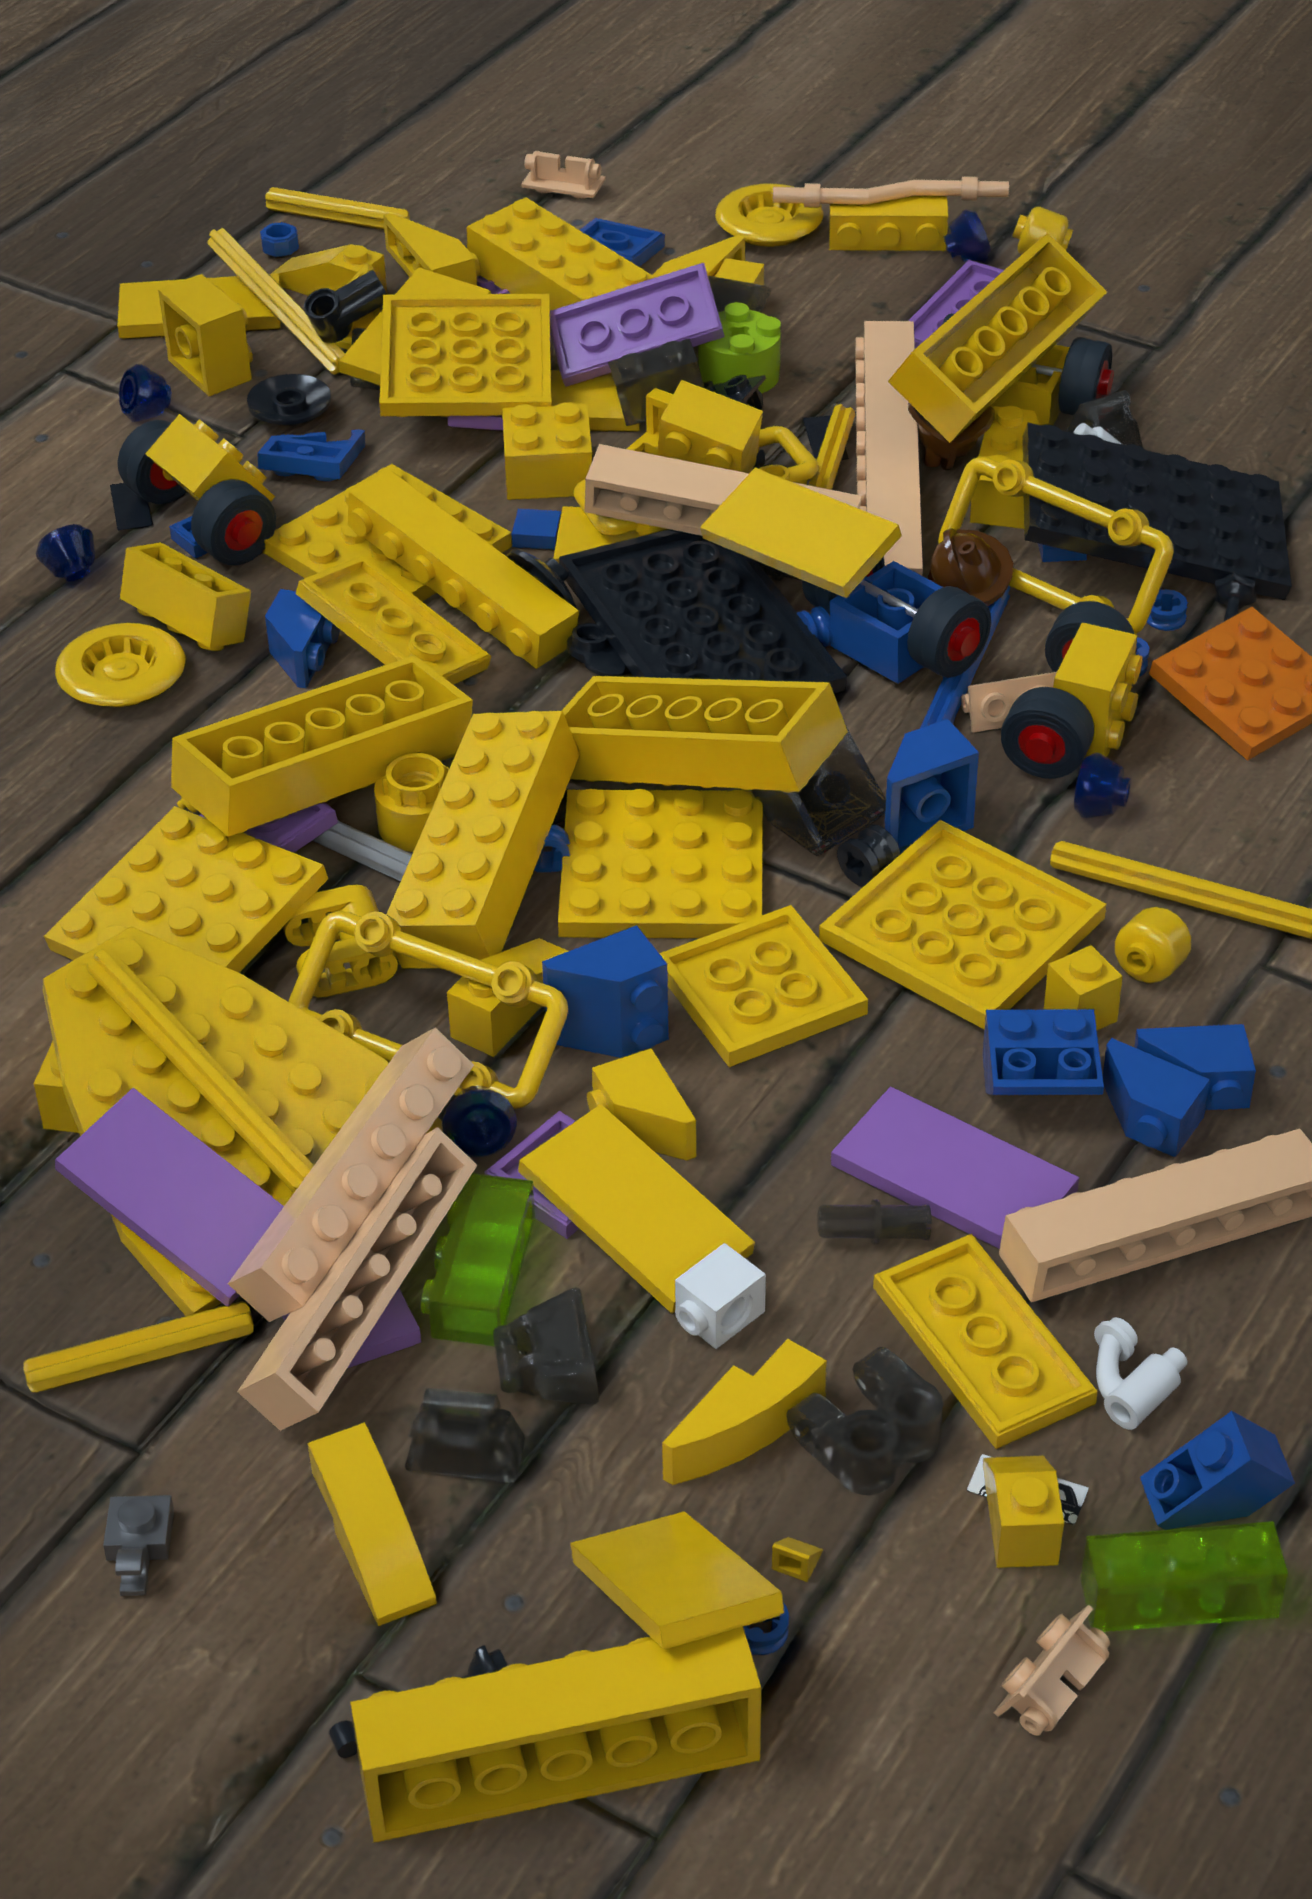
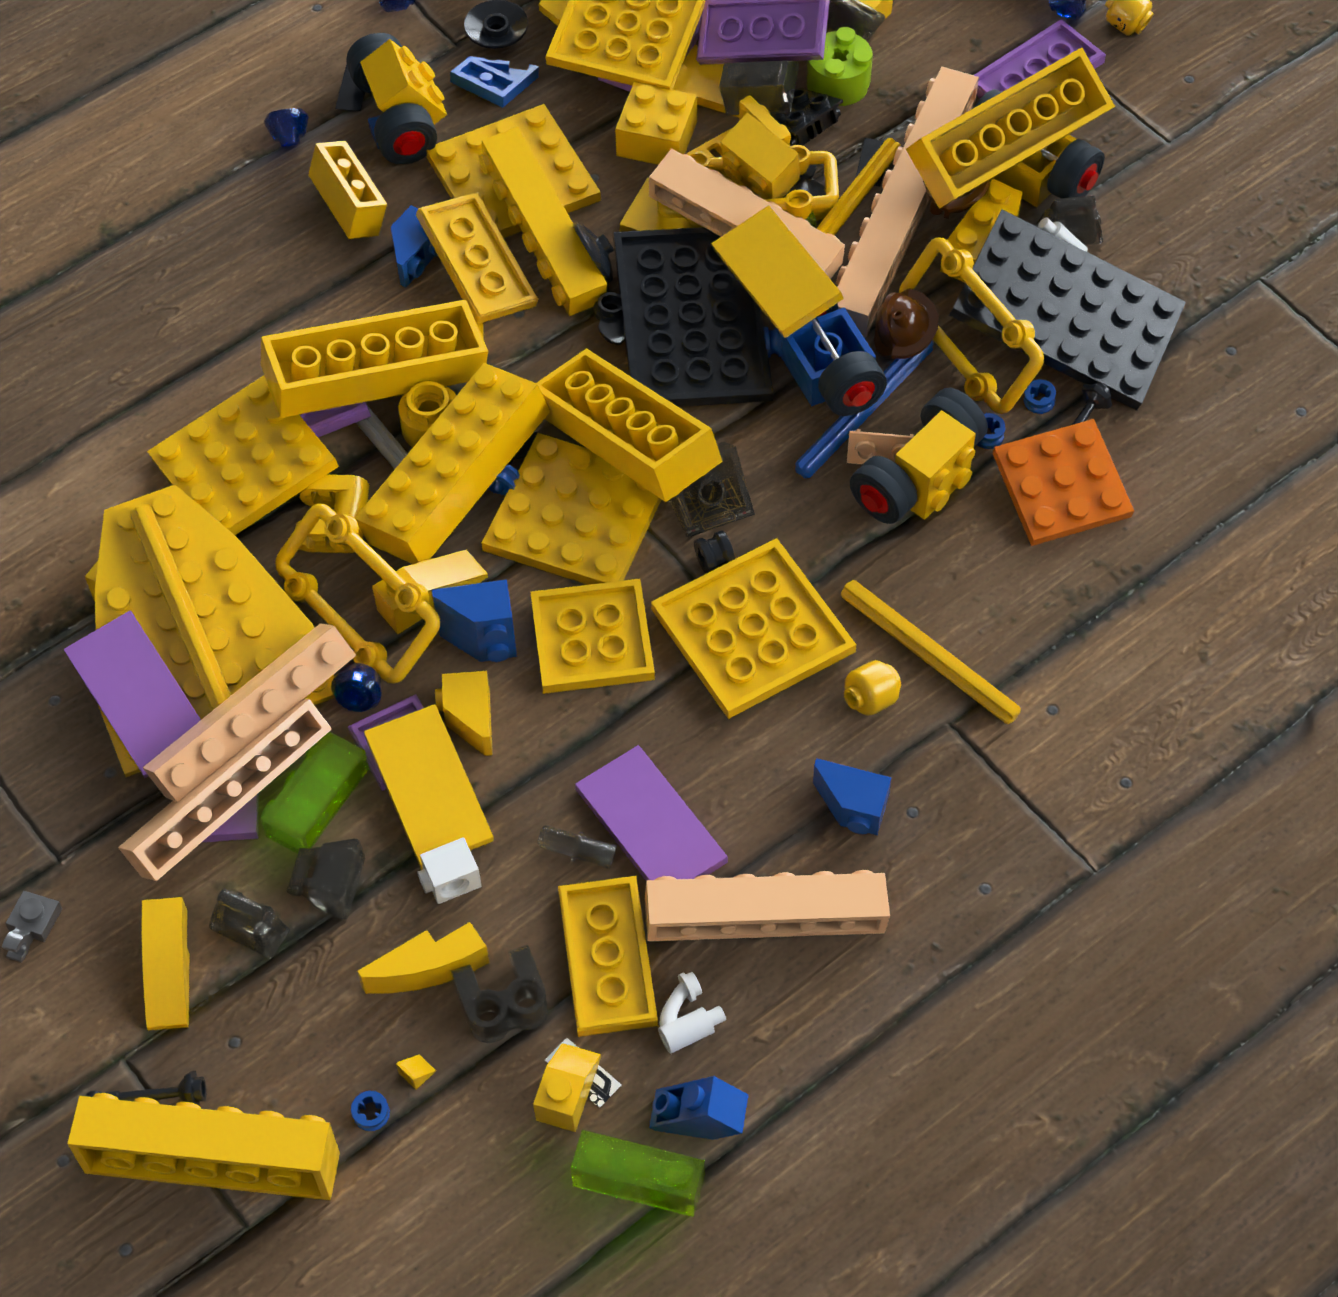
camera: 20 degrees right, 15 degrees up
(120, 664) = (286, 243): yellow wheel -> none
(138, 1347) = (81, 786): yellow axle -> none
(535, 529) = (620, 190): blue tile -> none
(677, 1579) = (315, 1073): yellow tile -> none
(931, 782) = (773, 510): blue slope -> none
(1036, 1686) = (543, 1198): light nougat hinge -> none
(1042, 1052) = (744, 758): blue slope -> none
(1084, 982) = (802, 712): yellow brick -> none
(1100, 787) = (904, 543): clear blue cone -> none
(1153, 1097) = (809, 813): blue slope -> none

